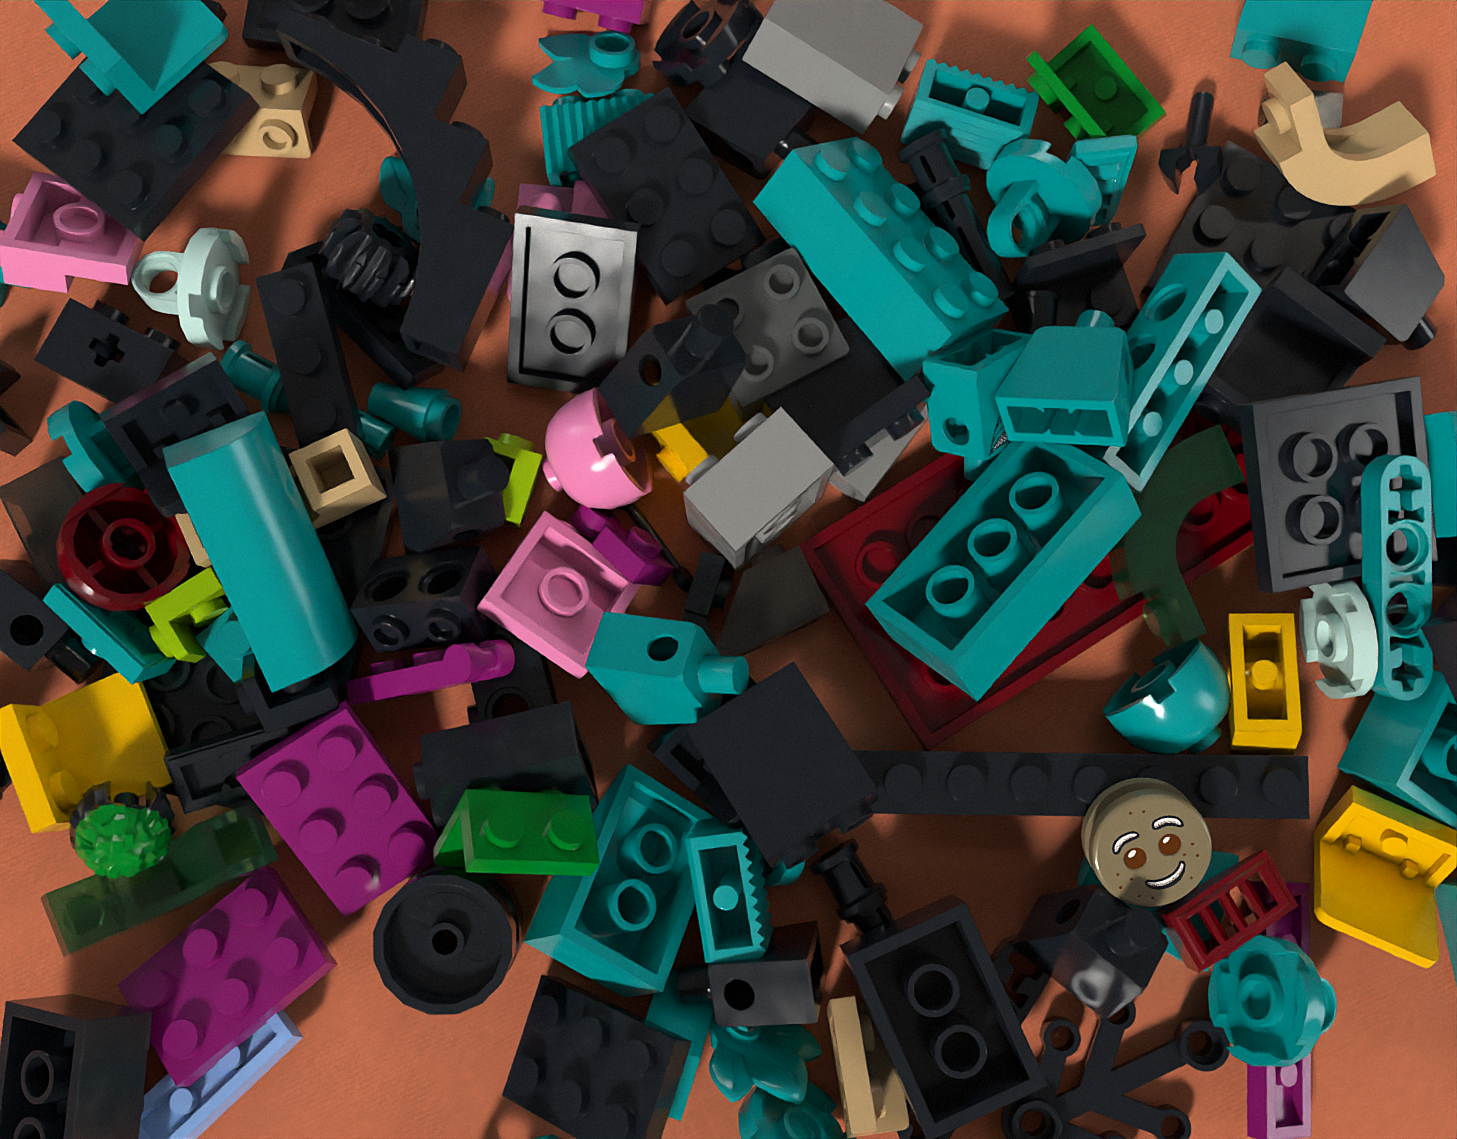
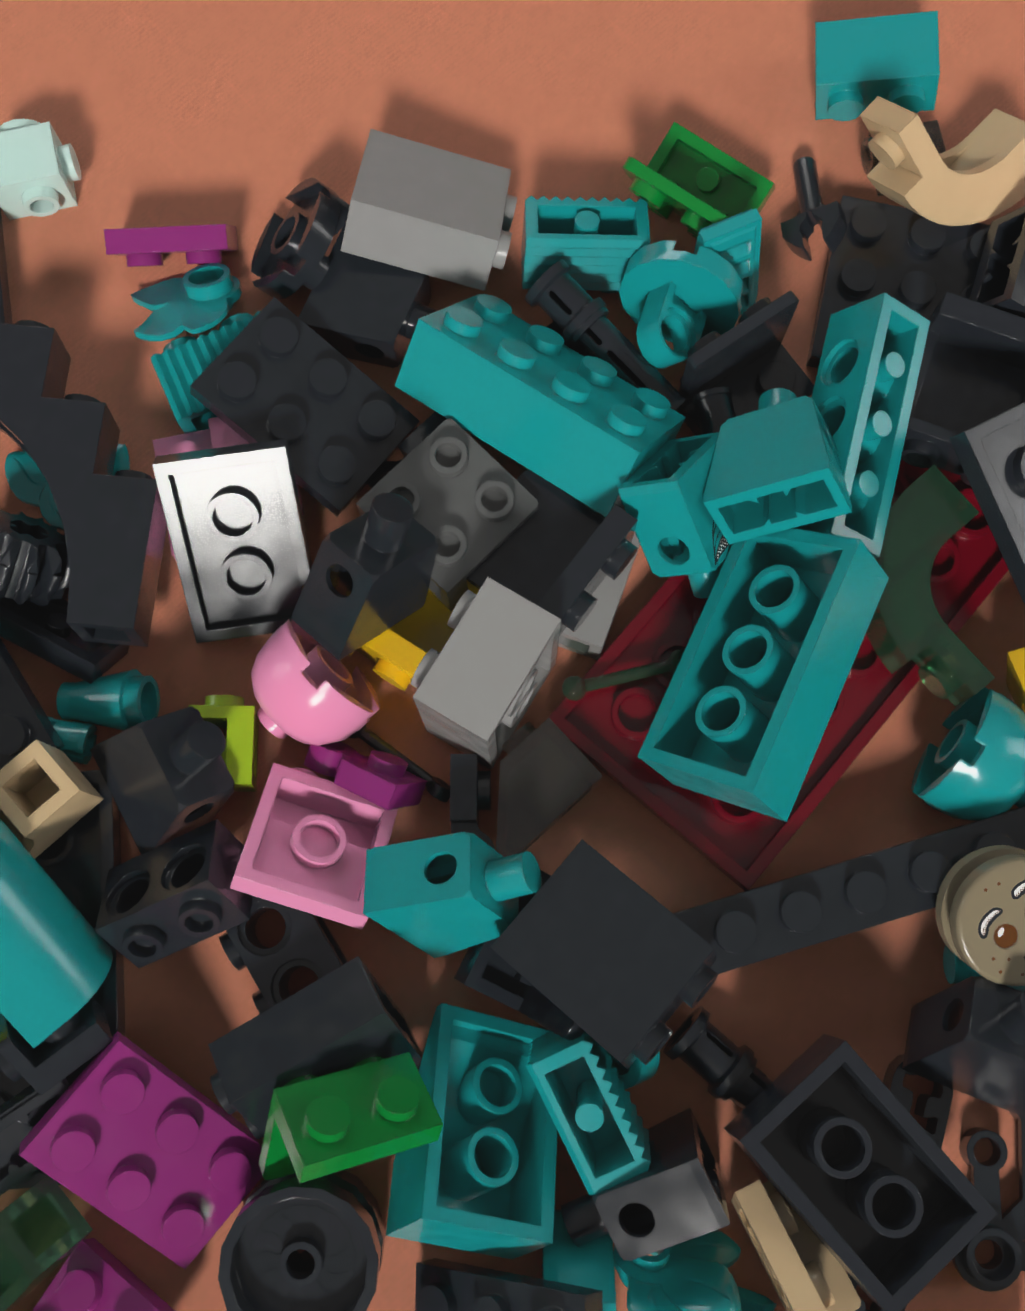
camera: 15 degrees left, 5 degrees down
(433, 671) = (204, 969): magenta plate -> none
(831, 526) = (575, 687): none -> hinge

